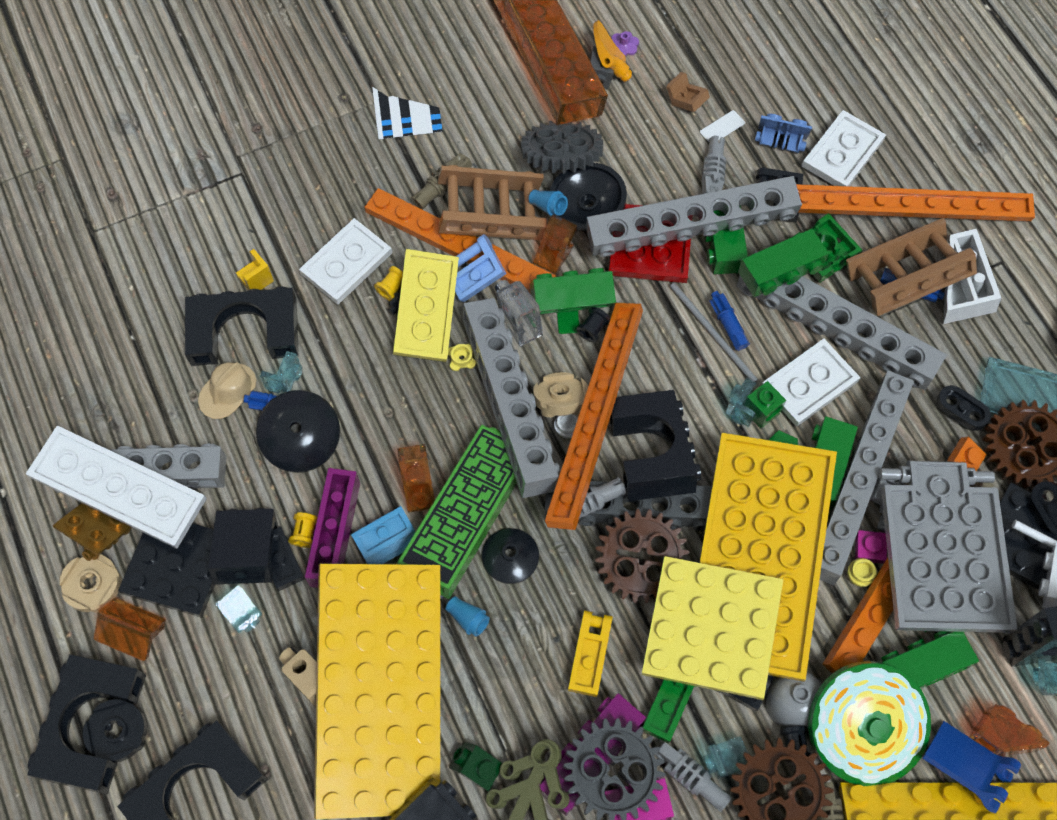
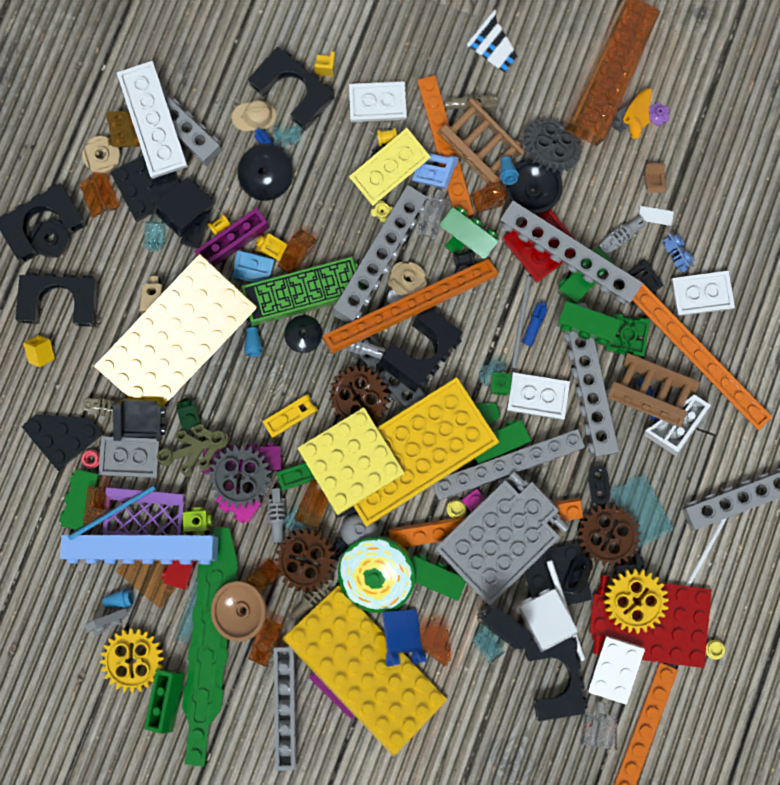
camera: 45 degrees right, 15 degrees up
(381, 498) = (270, 246): none -> yellow bracket
(720, 723) = (312, 506): none -> clear orange panel

